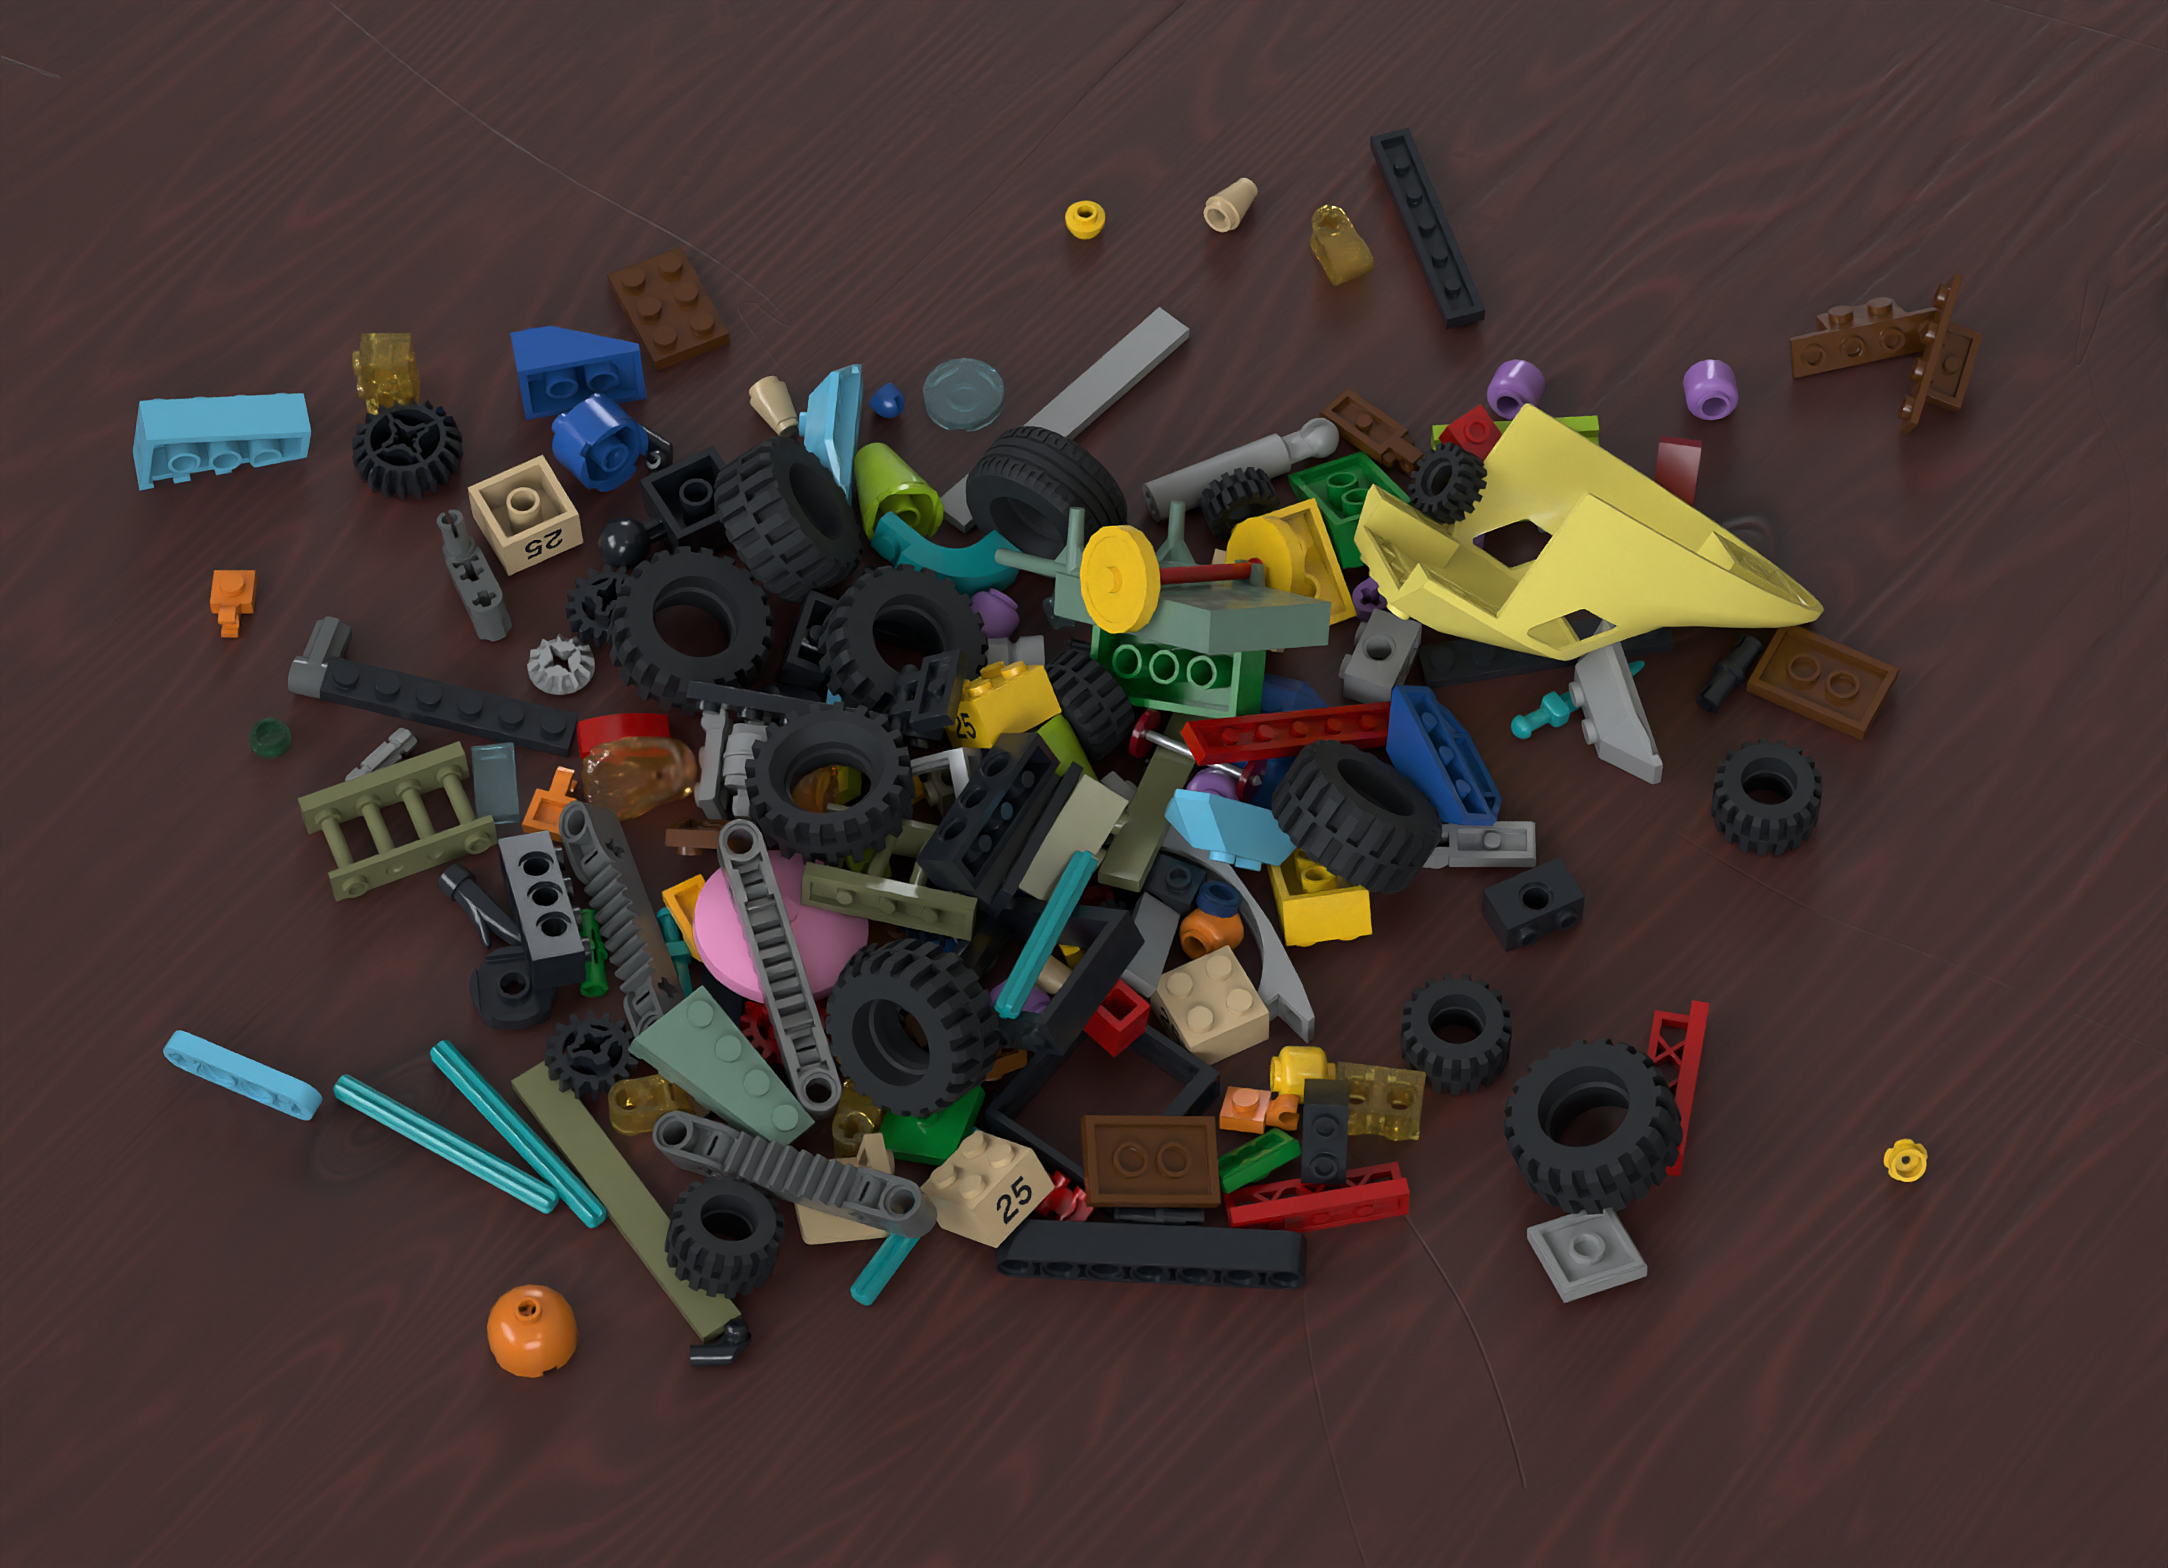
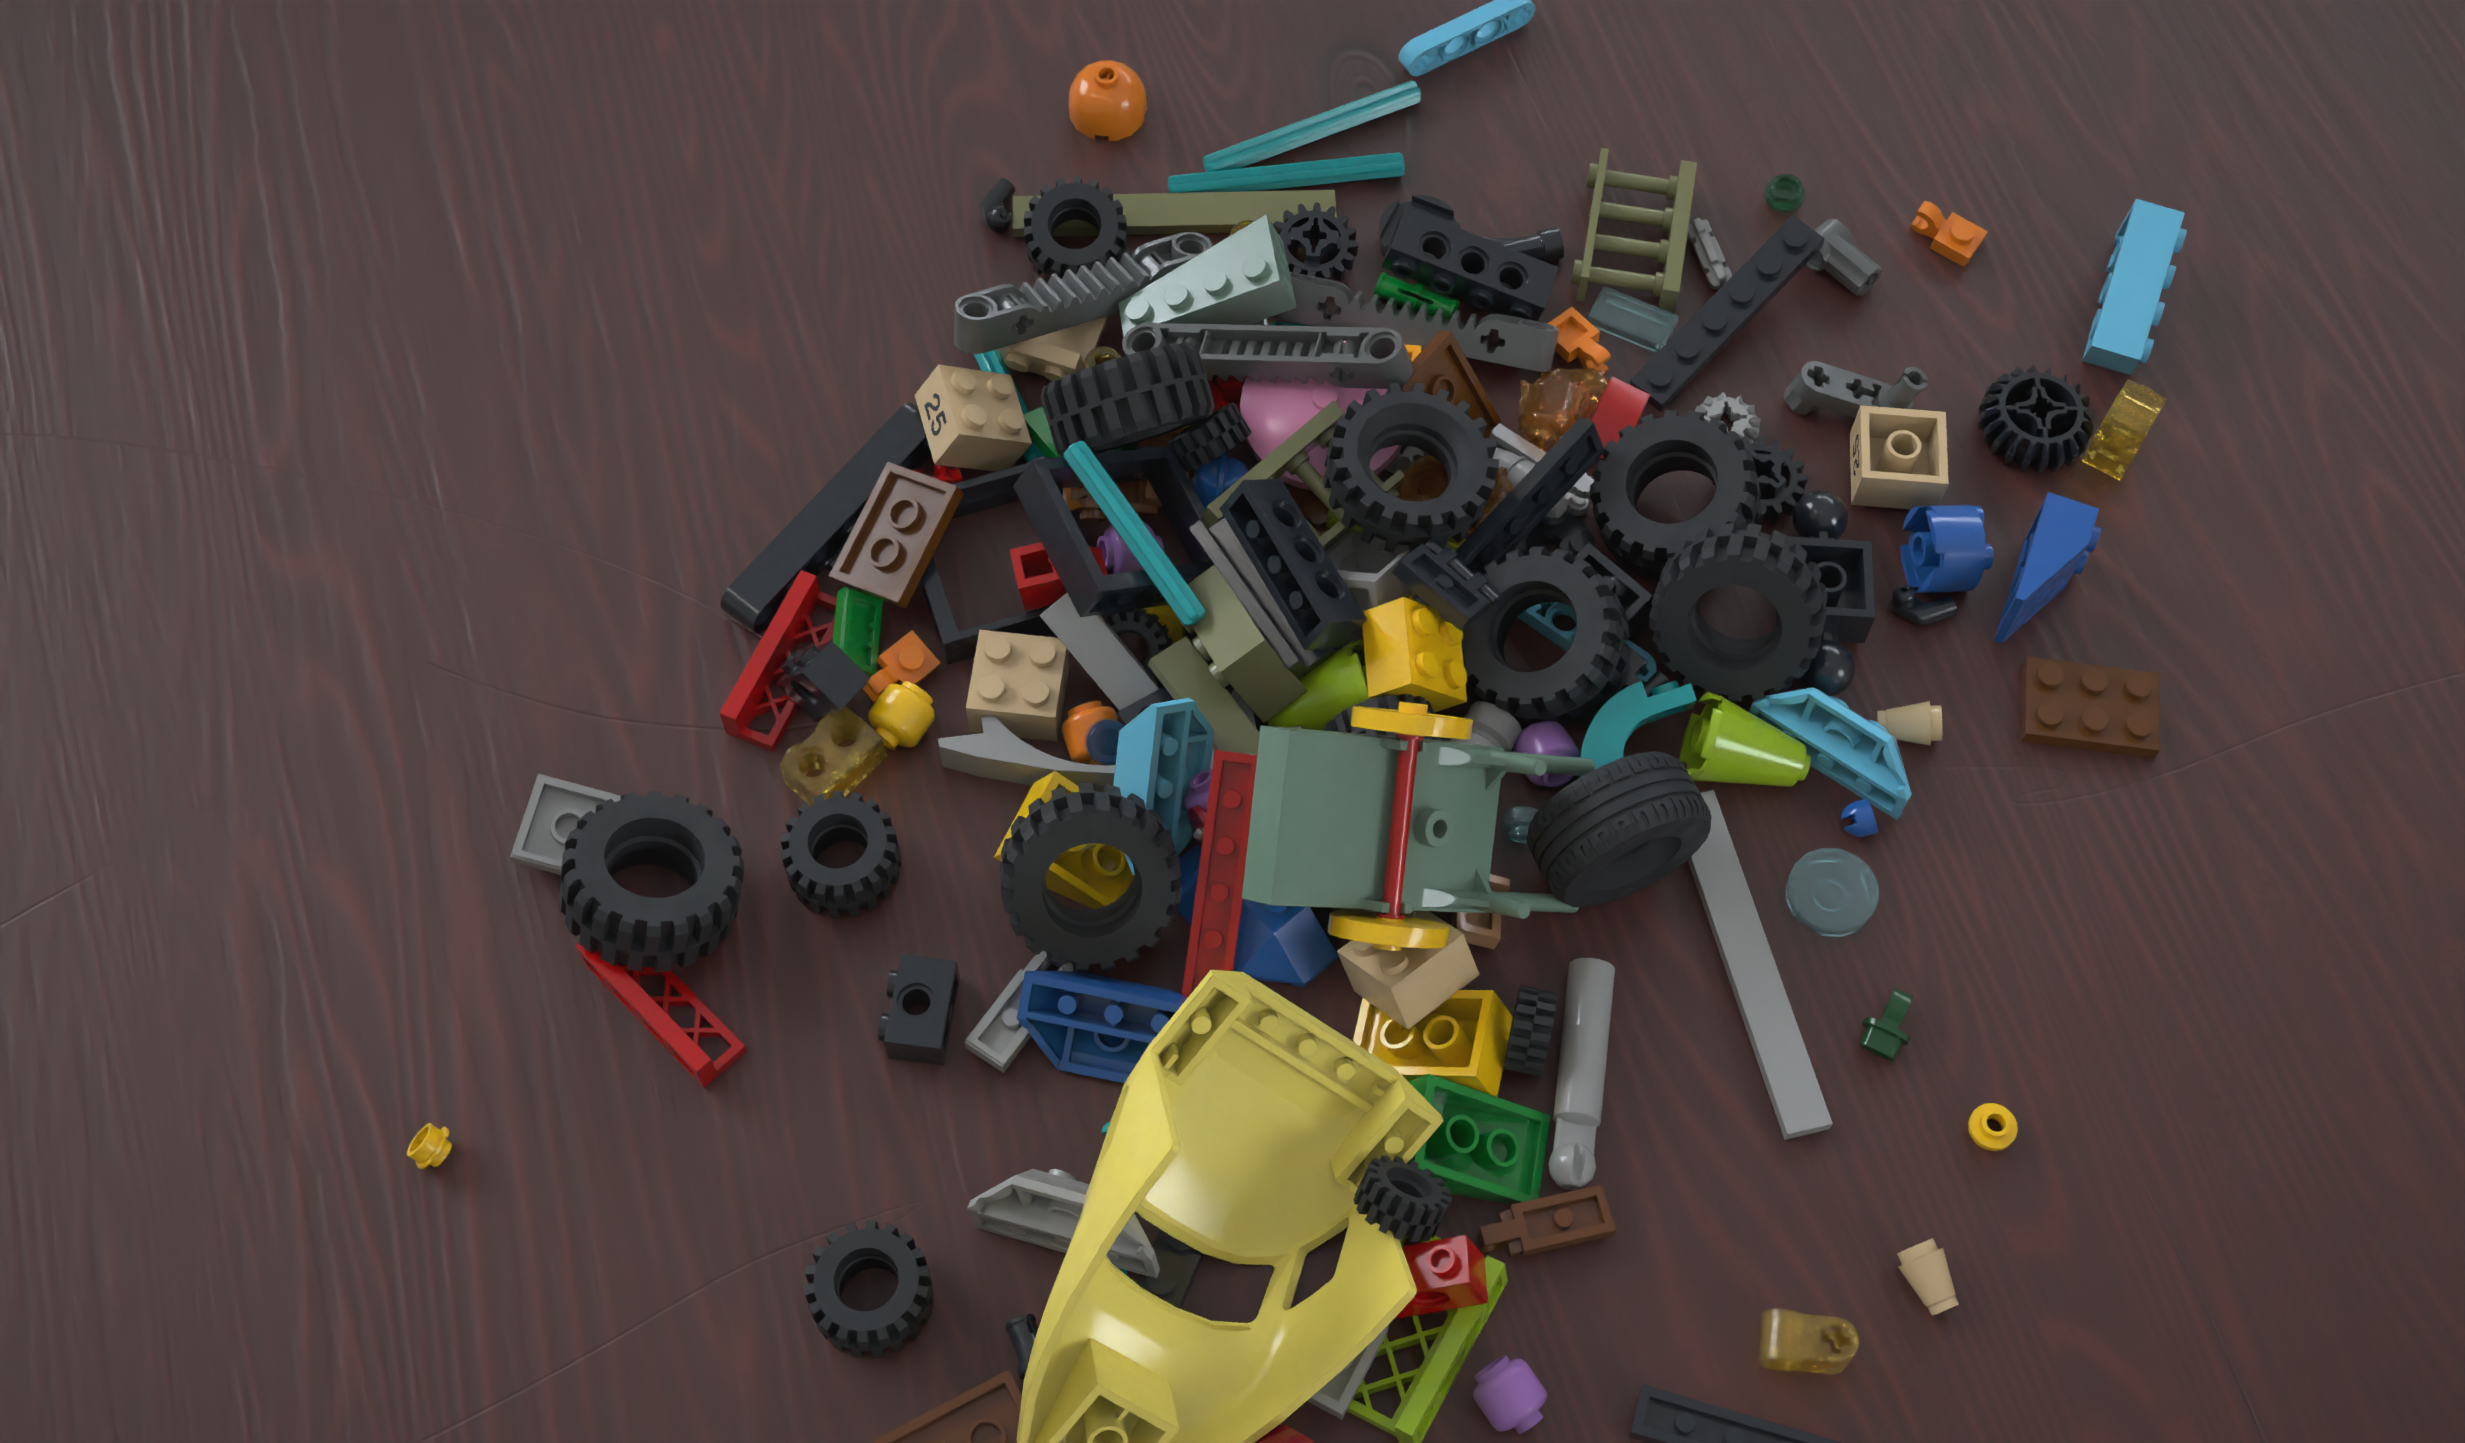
camera: 120 degrees right, 5 degrees up
(1048, 310) = (1883, 1035): none -> dark green piece

